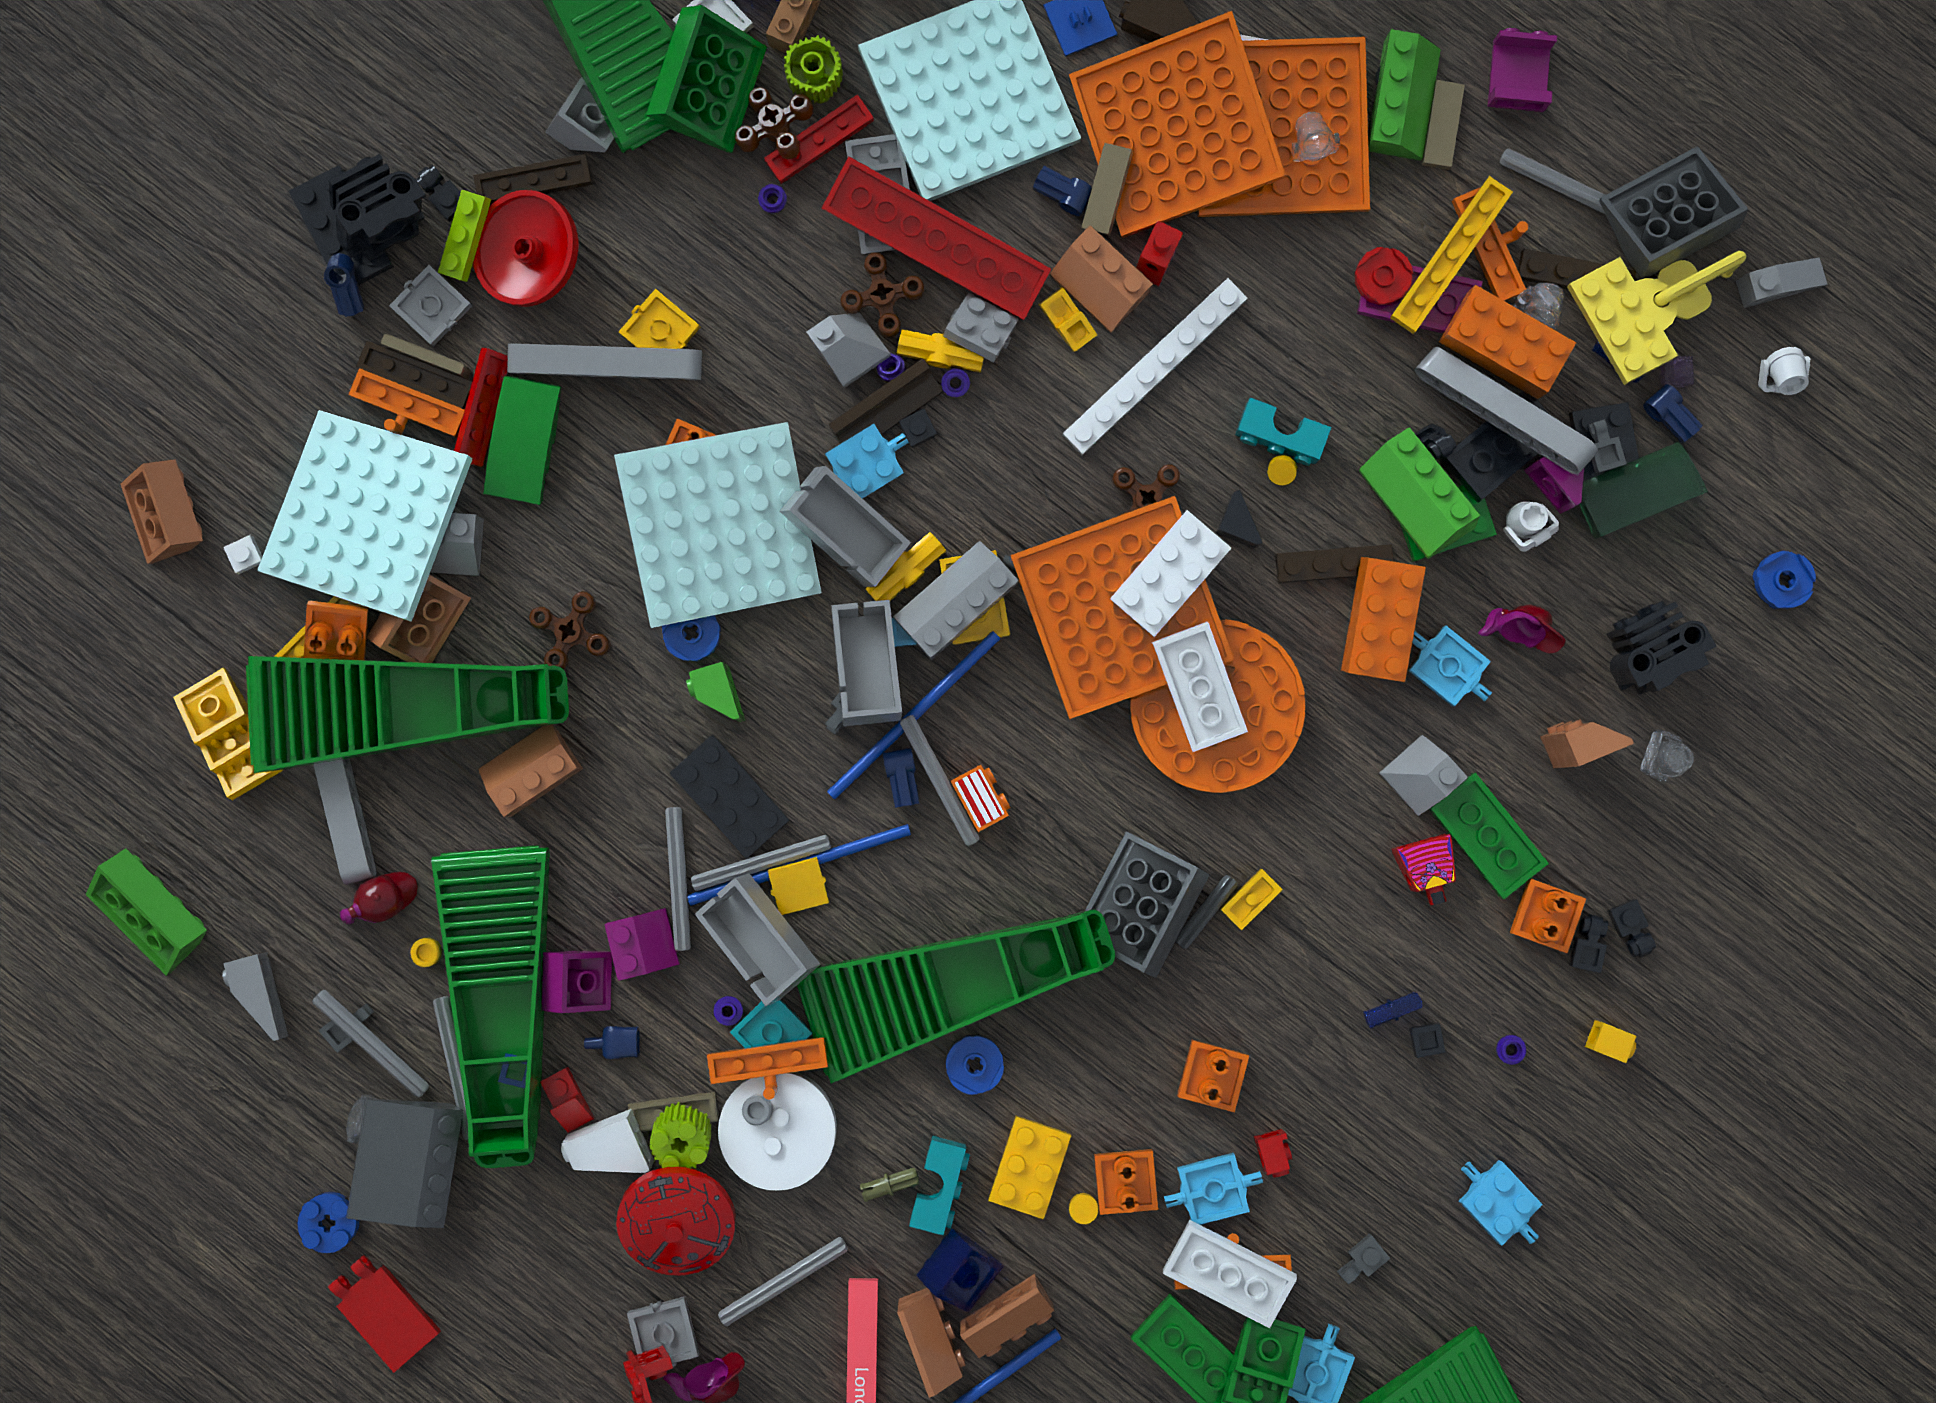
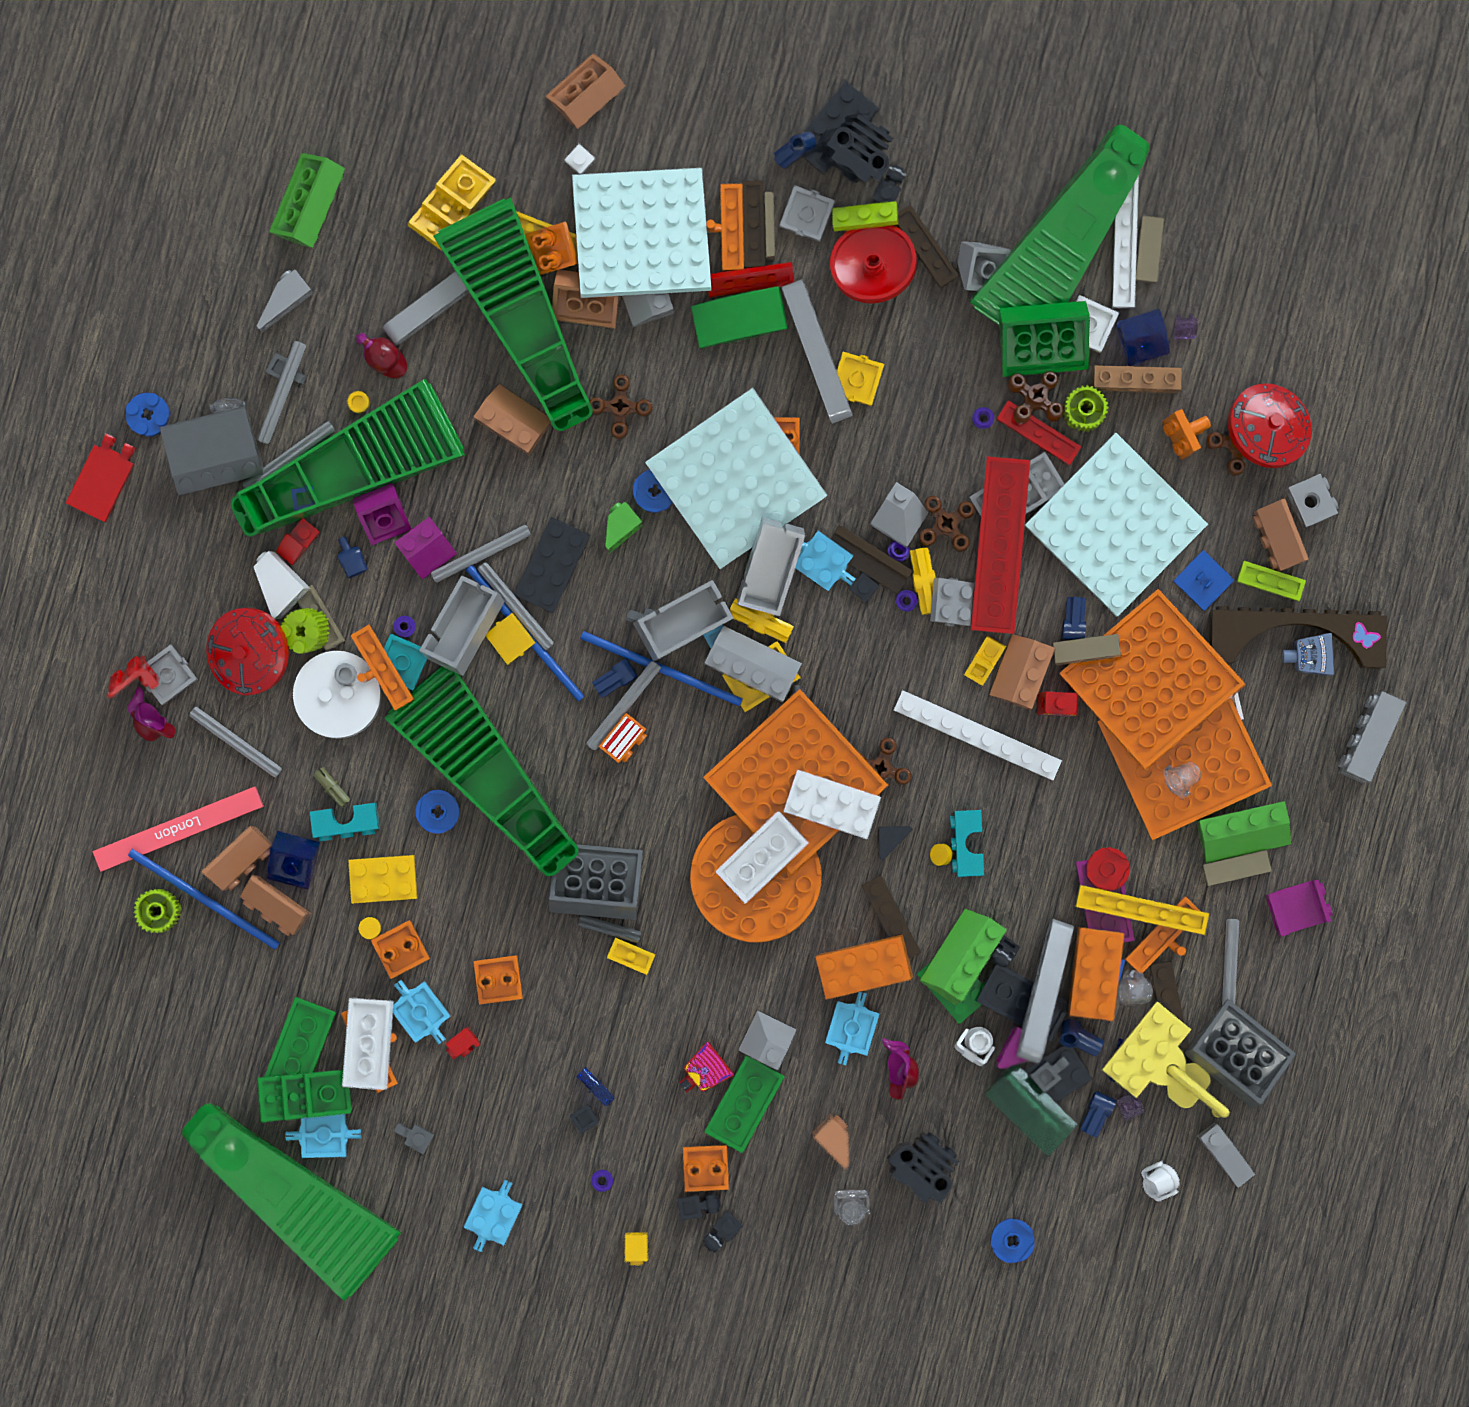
camera: 65 degrees right, 0 degrees up
(1570, 400) = (1074, 1036): none -> dark blue piece

